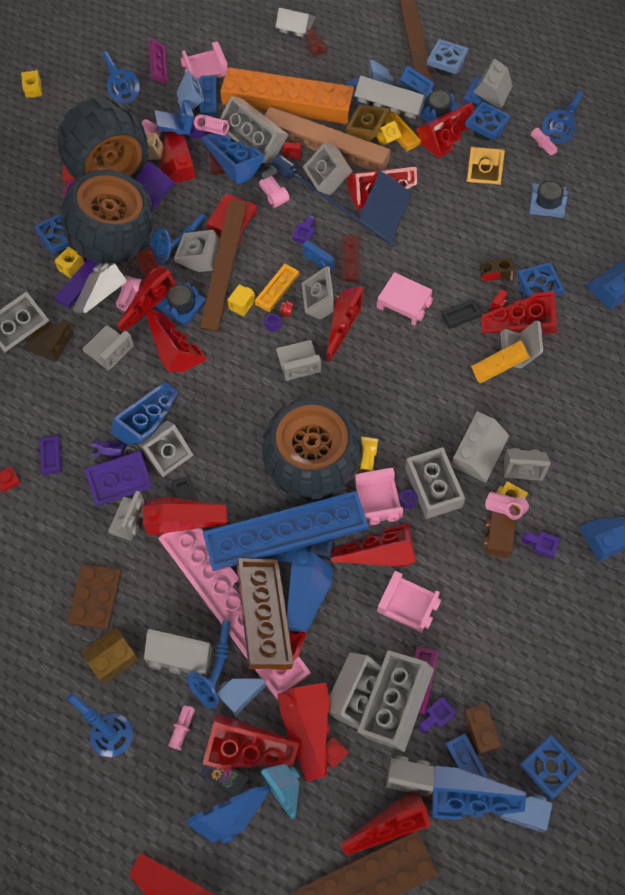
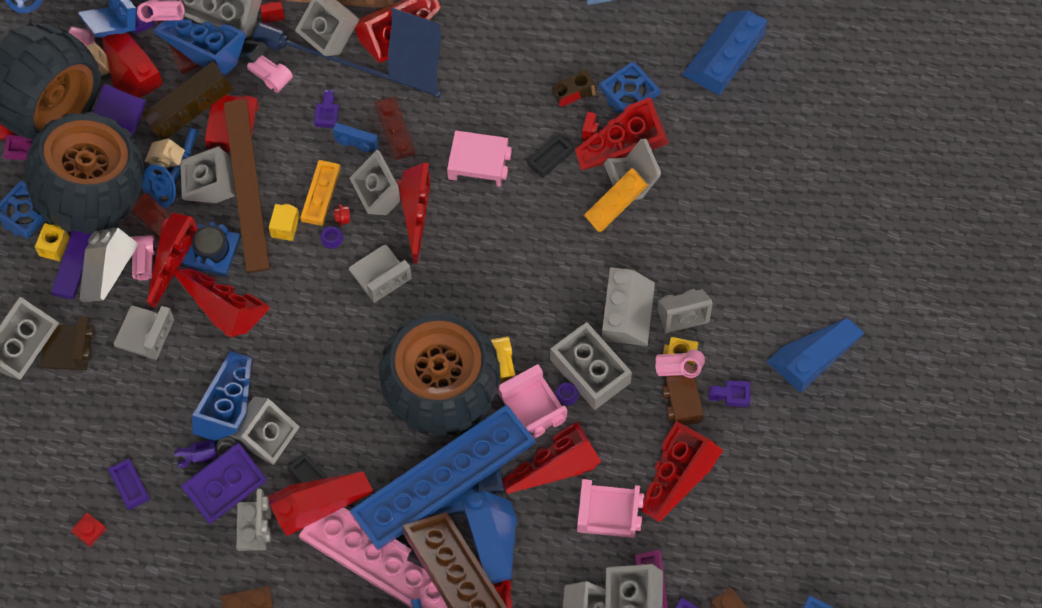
camera: 20 degrees left, 0 degrees up
(174, 225) = (165, 154): none -> tan brick
(205, 192) = (188, 101): none -> dark brown brick
(480, 588) = (683, 464): none -> red wedge

